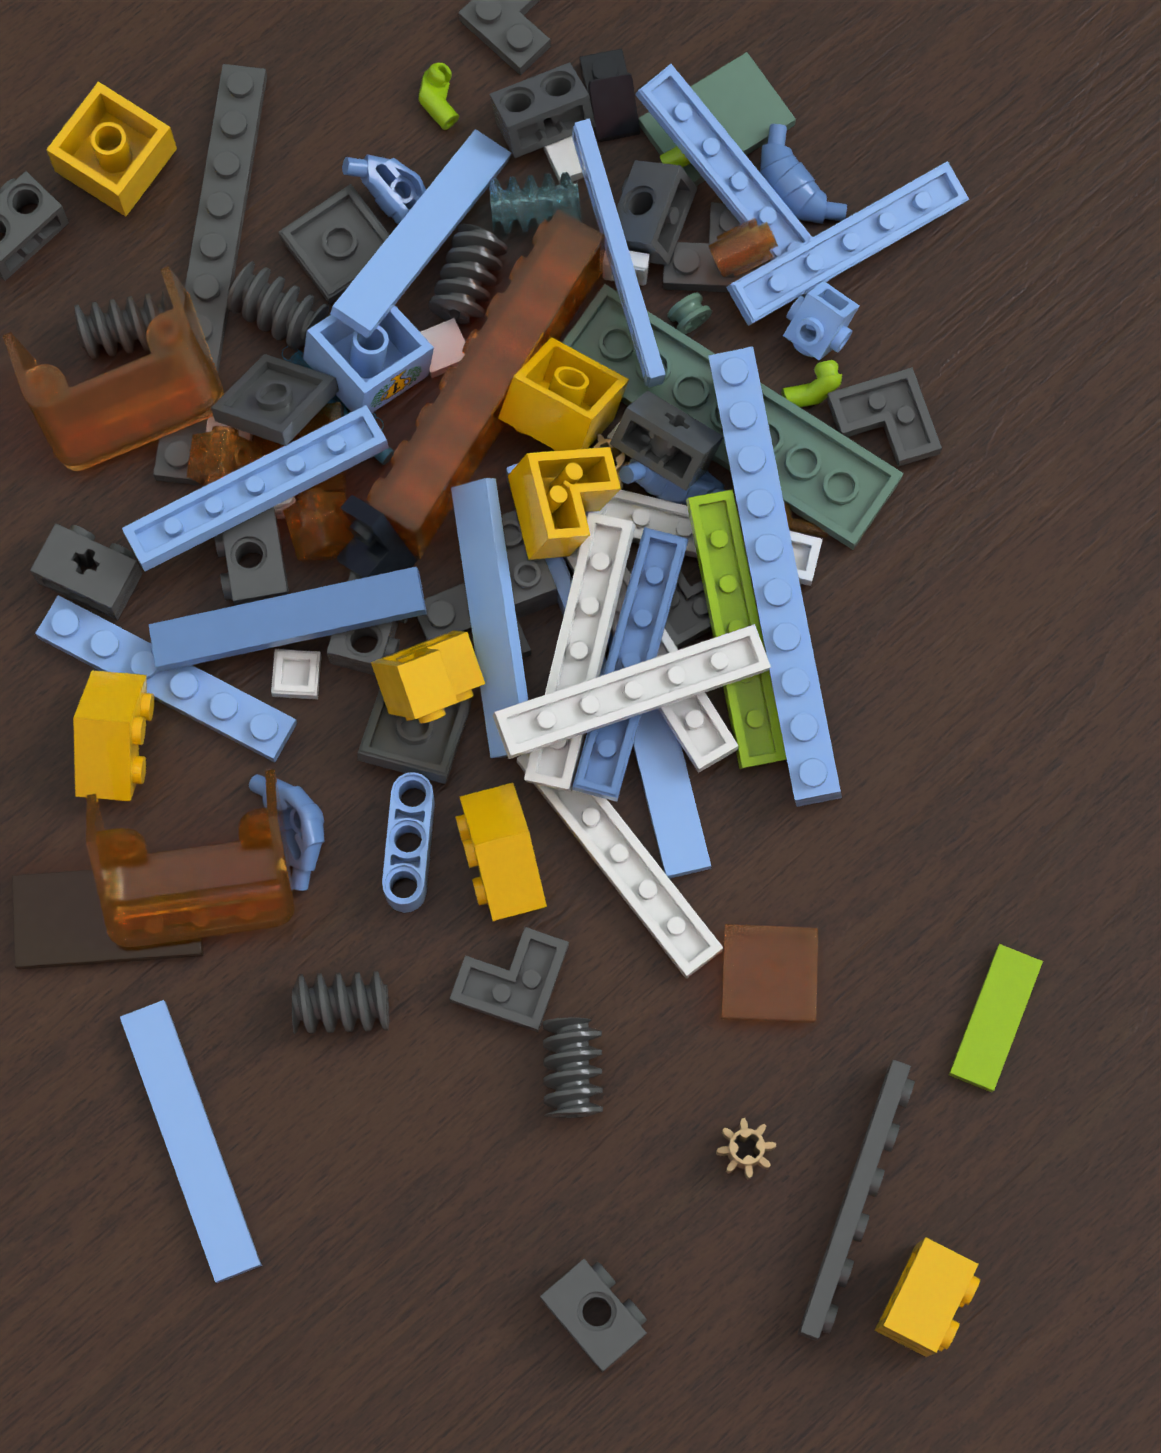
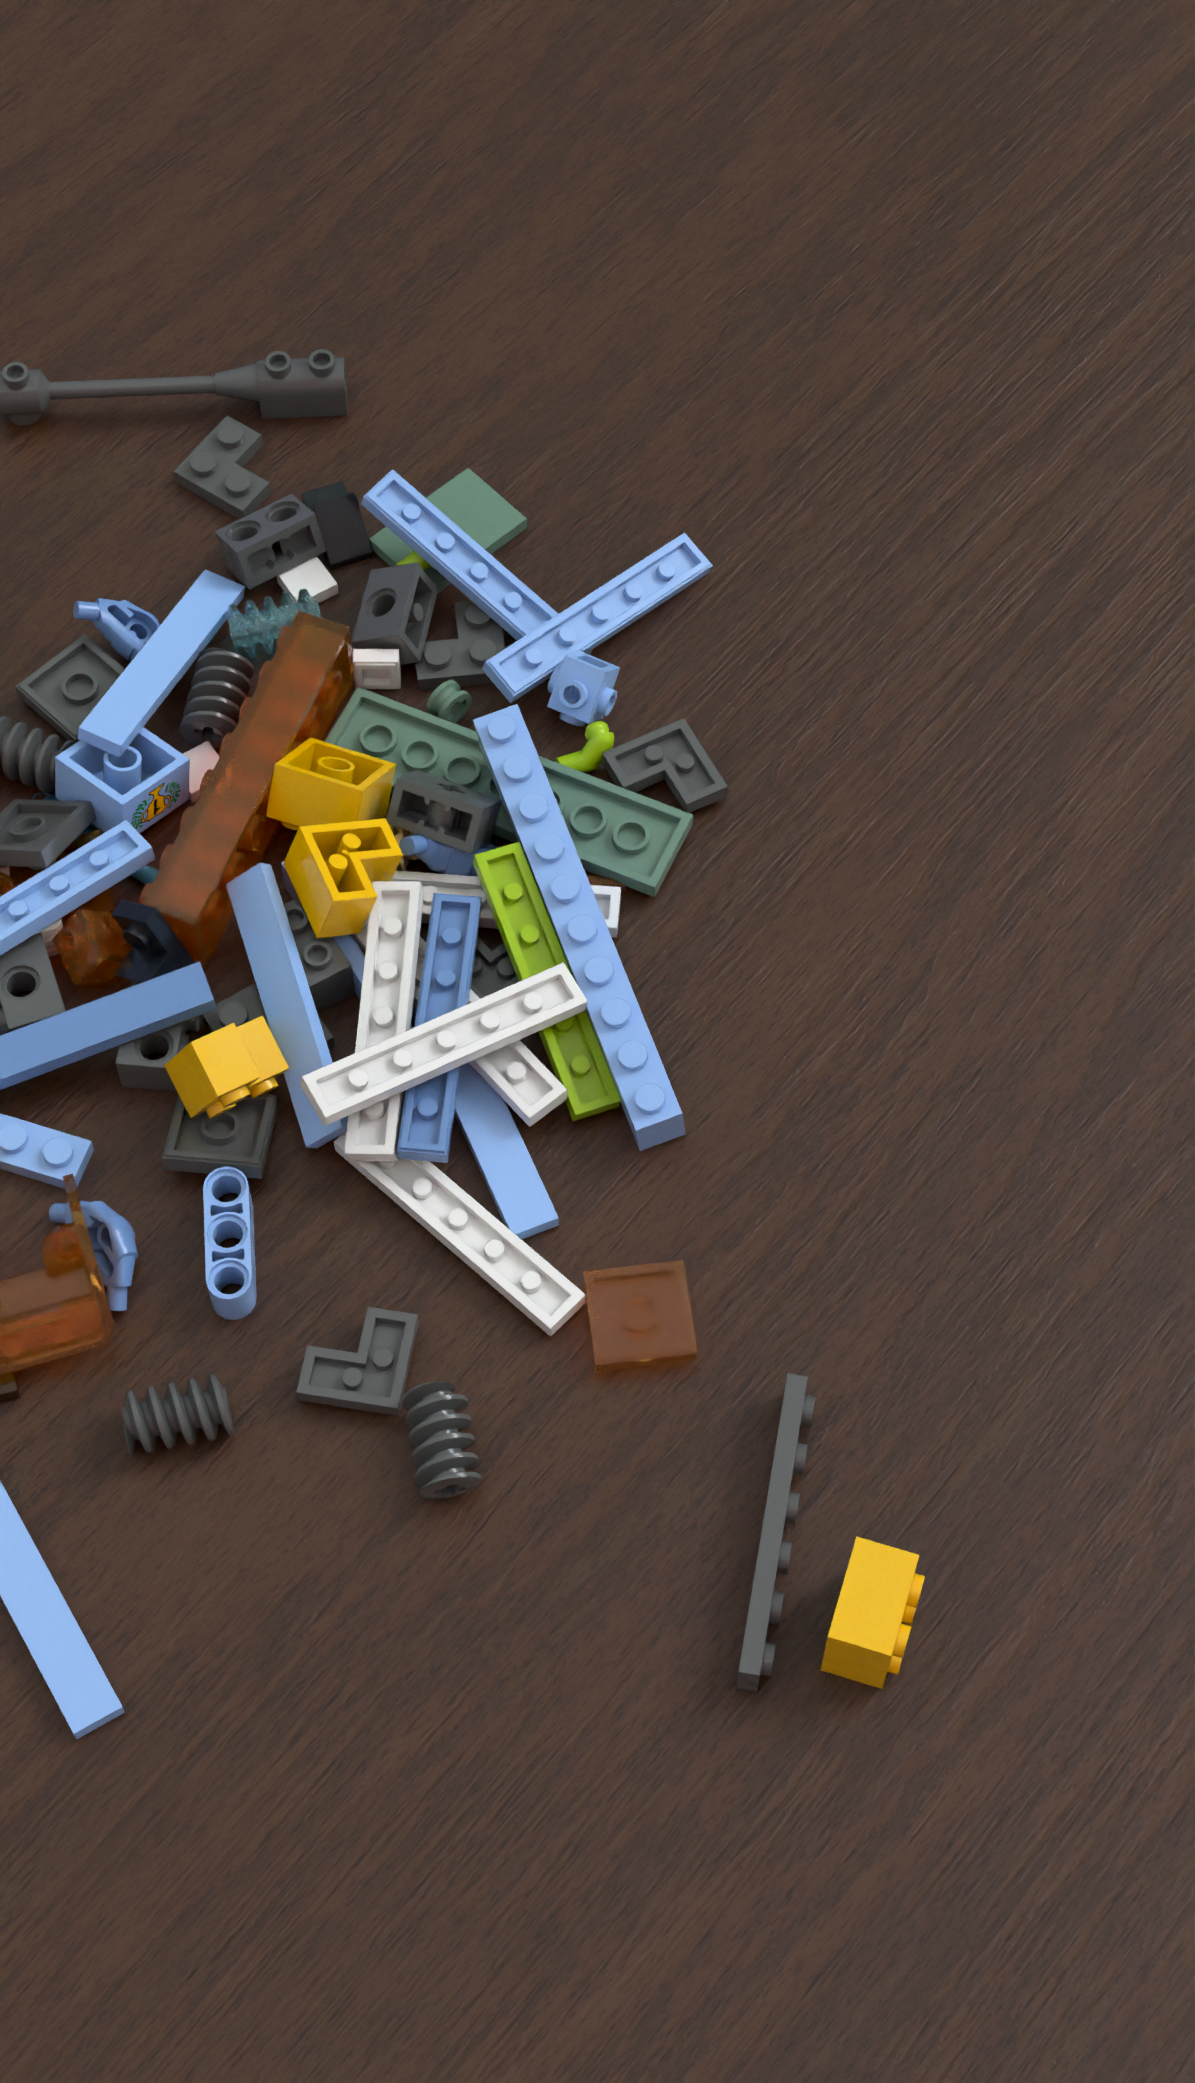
camera: 10 degrees left, 15 degrees down
(296, 674) = (86, 1100): white tile -> none
(434, 93) = (159, 545): lime arm -> none
(501, 847) = (330, 1222): yellow brick -> none
(601, 1343) = (516, 1727): dark grey brick -> none
(618, 253) = (367, 648): light blue tile -> none
(743, 247) = (493, 628): clear orange brick -> none
(743, 1136) = (638, 1484): tan gear -> none
(794, 182) = (536, 570): medium blue piece -> none
(995, 1018) = (889, 1325): lime tile -> none

